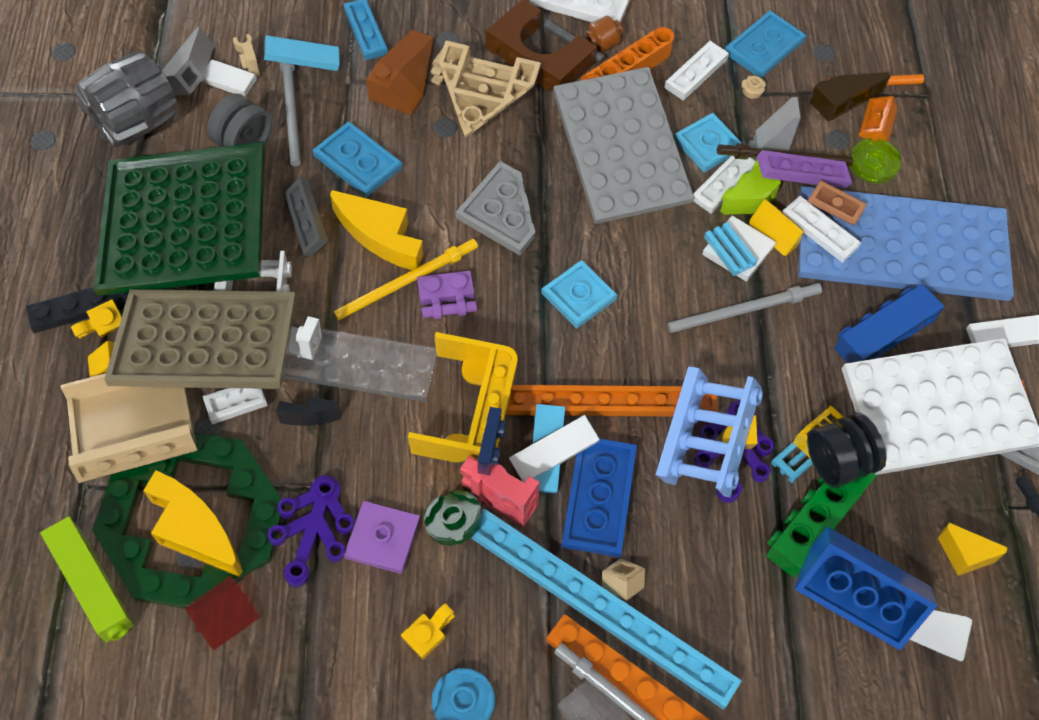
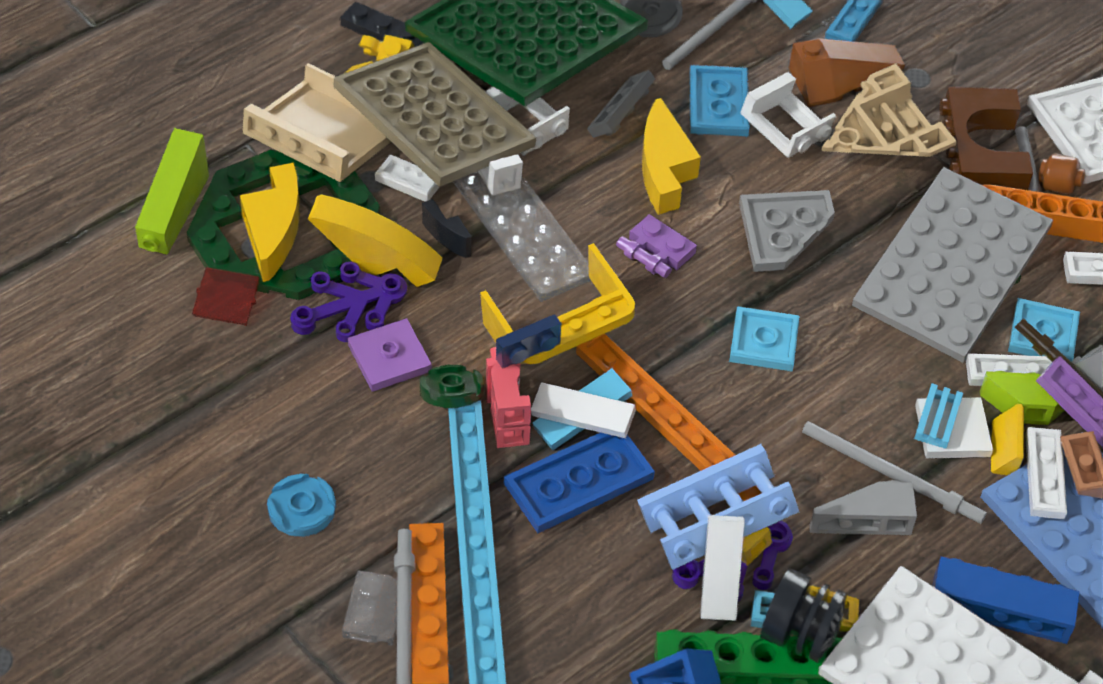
camera: 50 degrees right, 10 degrees down
(284, 470) = (374, 240): none -> yellow slope
(425, 633) = (335, 438): yellow plate -> none
(439, 126) = (779, 93): none -> white panel
(450, 256) = (698, 223): yellow bar -> none
(623, 579) = (518, 547): tan slope -> none
(758, 466) = (722, 567): none -> white tile
(772, 336) = (876, 509): none -> light grey slope

